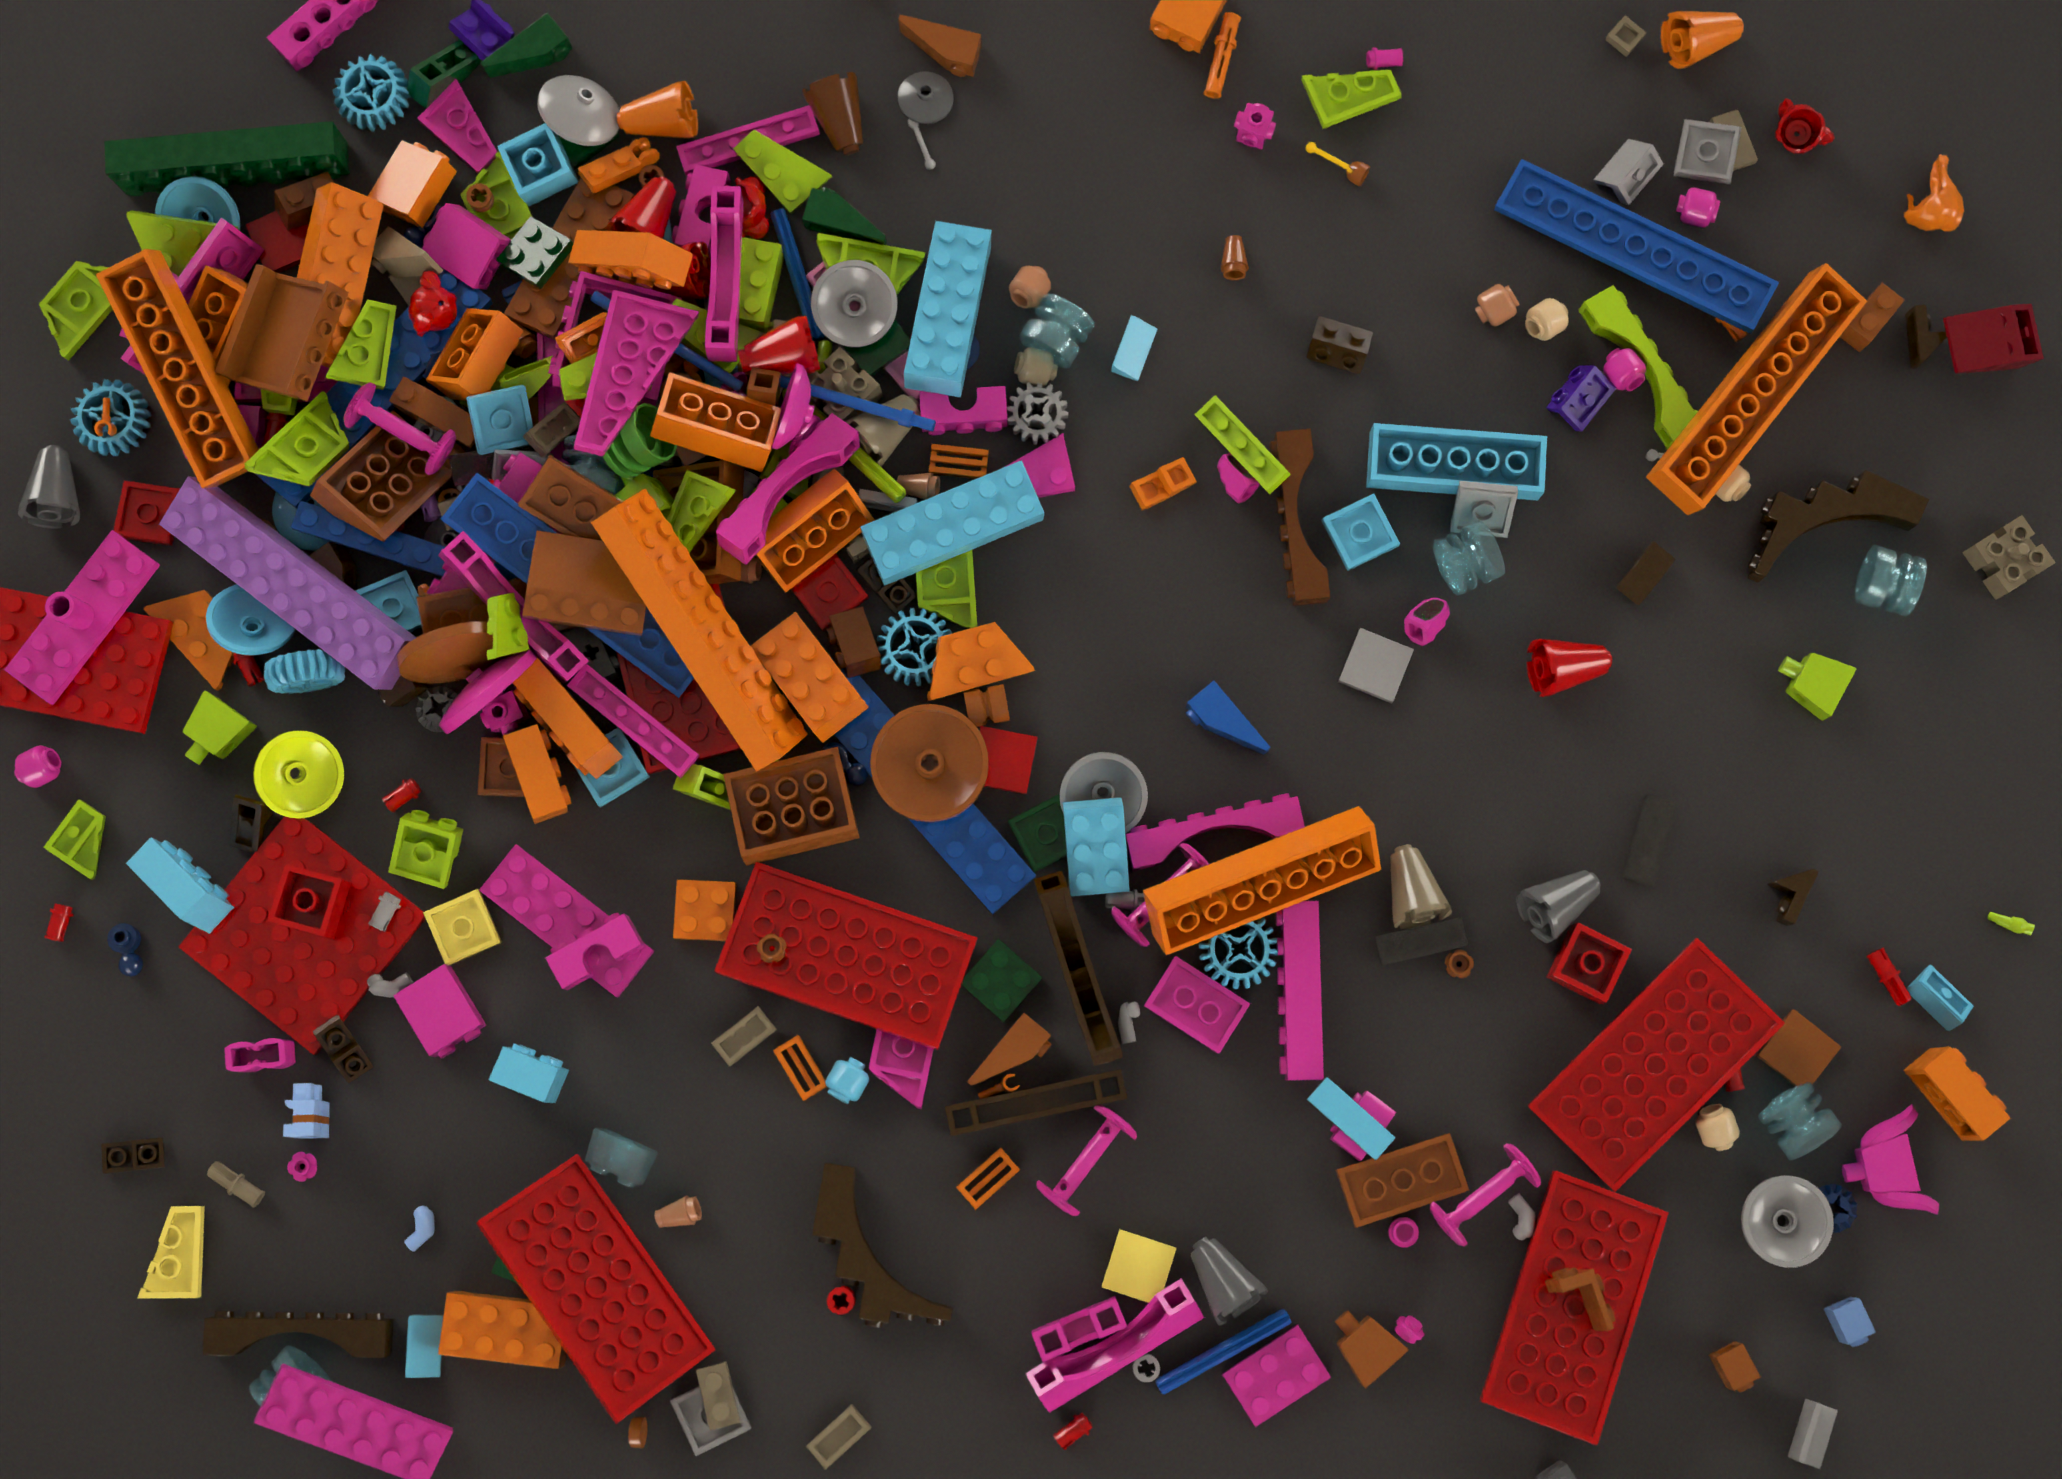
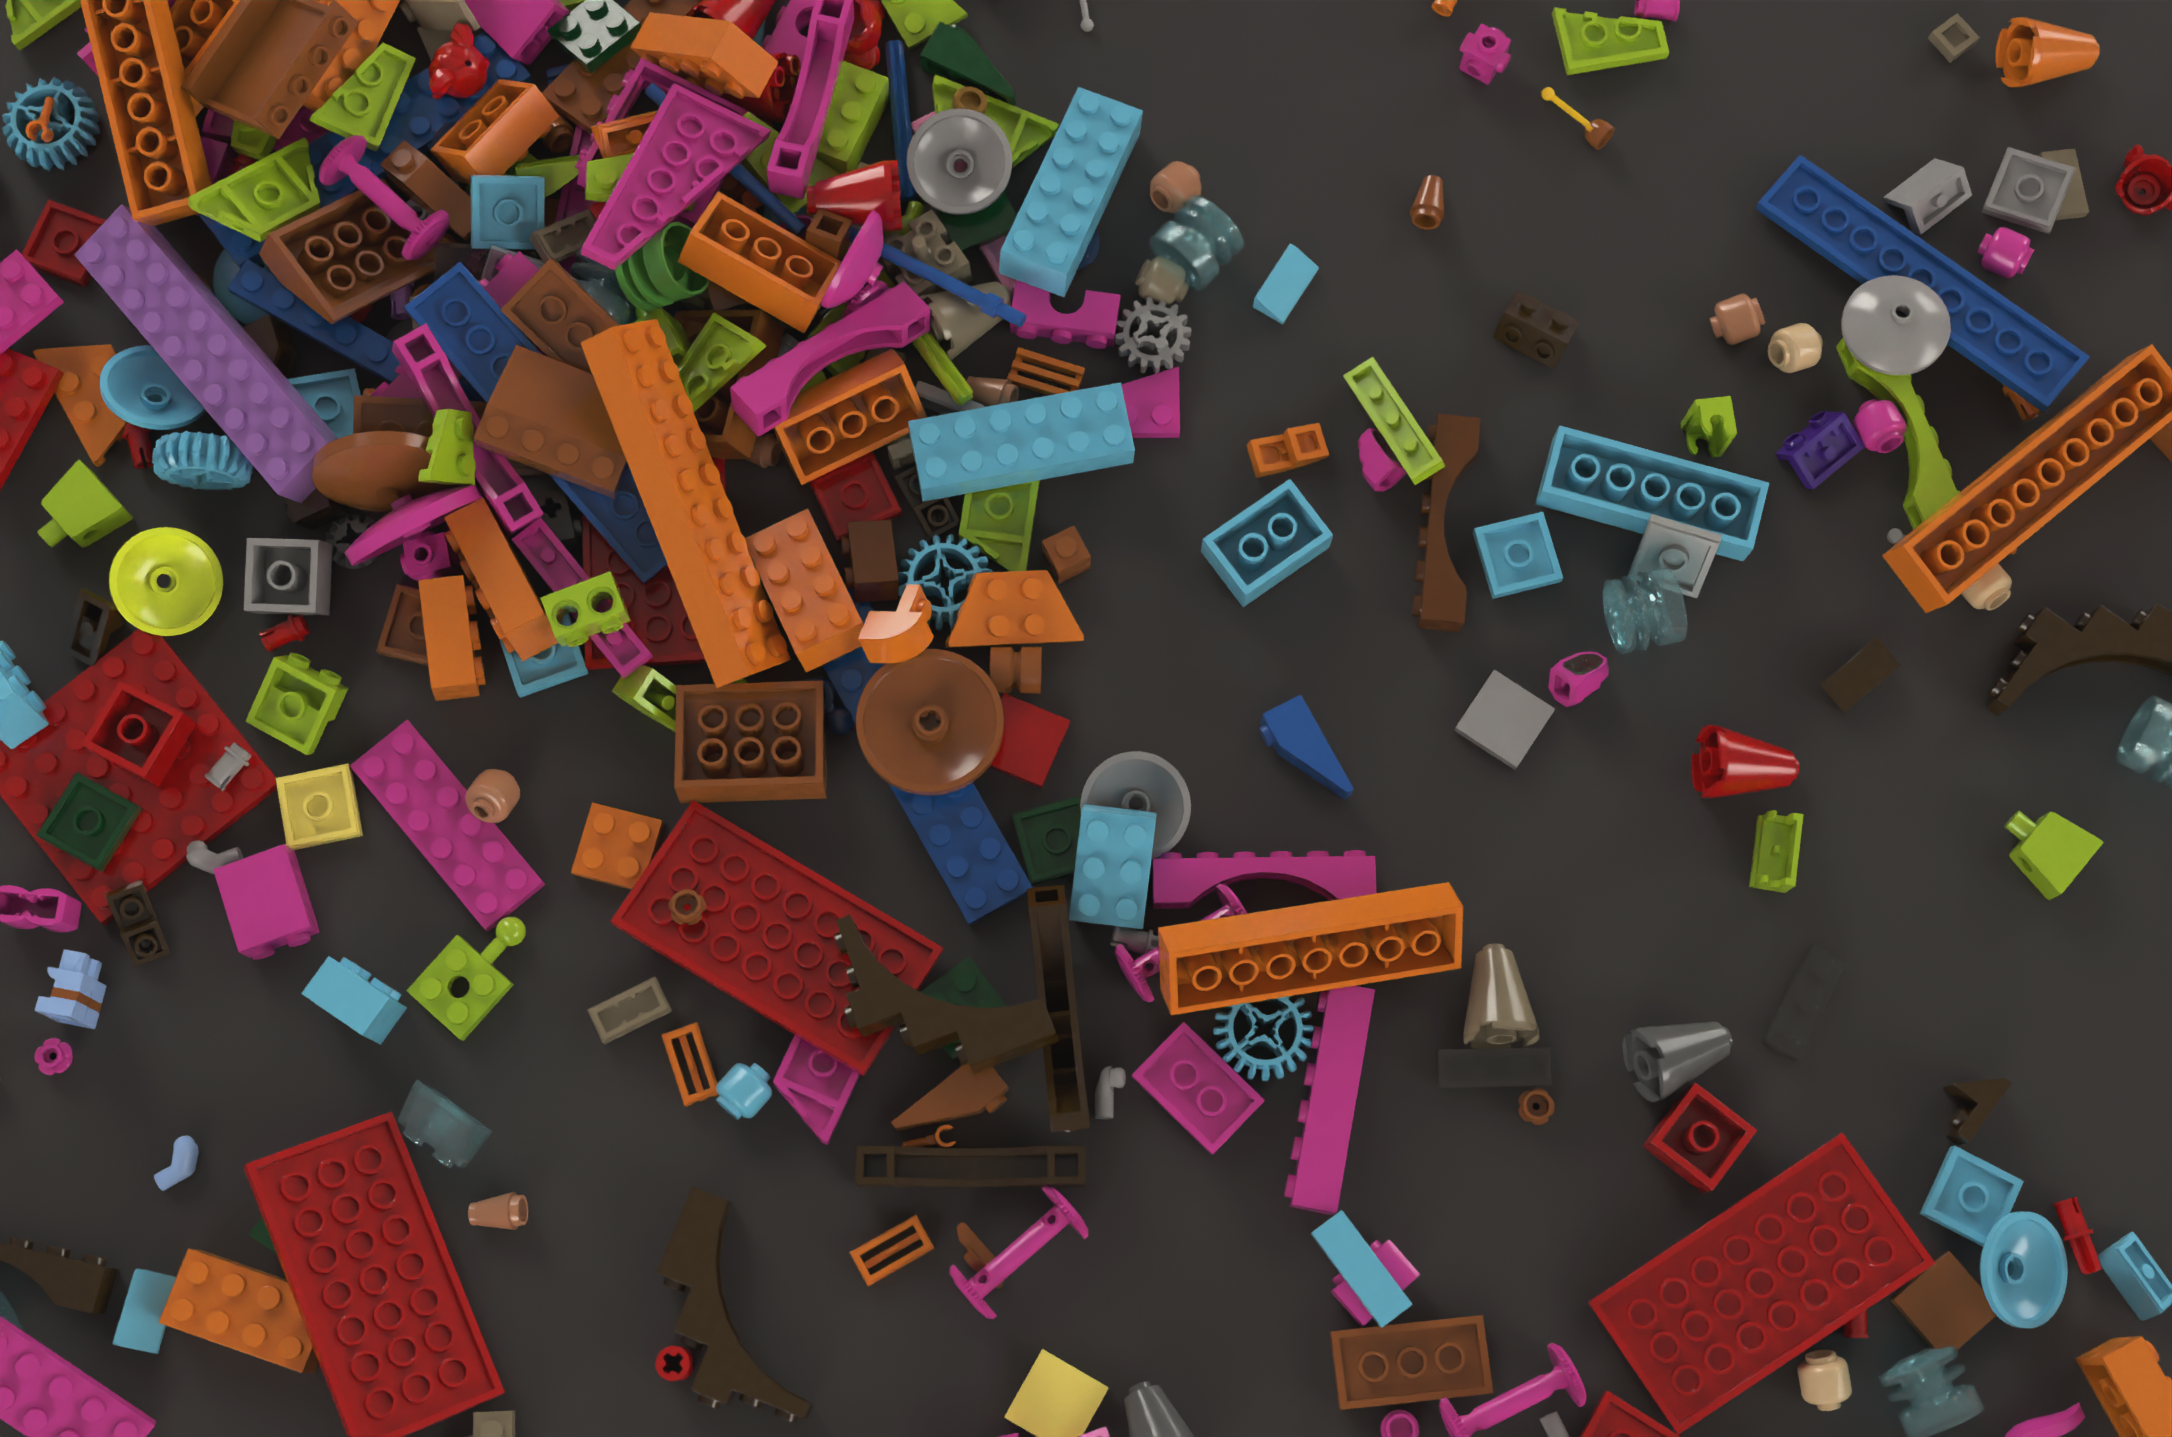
camera: 10 degrees right, 5 degrees down
(285, 978) = (89, 822): none -> dark green tile
(395, 750) = (288, 576): none -> light grey brick
(571, 961) = (438, 871): dark pink arch -> none
(598, 889) = (492, 795): none -> nougat head
(626, 1037) = (485, 981): none -> lime plate
(636, 724) = (583, 599): none -> lime brick
(850, 250) = (971, 99): none -> pearl gold tile
(889, 700) = (898, 634): none -> orange brick
(1006, 605) = (1066, 554): none -> dark orange brick
(1026, 1000) = (985, 1034): none -> dark brown arch
(1054, 1167) = (978, 1254): none -> dark orange piece
(1162, 563) = (1266, 542): none -> medium azure brick
(1494, 394) = (1712, 421): none -> lime hinge
(1606, 727) = (1776, 851): none -> lime hinge
(1621, 302) = (1891, 342): none -> light grey dish
(1803, 964) = (1970, 1195): none -> medium azure plate
(1853, 1012) = (2024, 1269): none -> medium azure dish

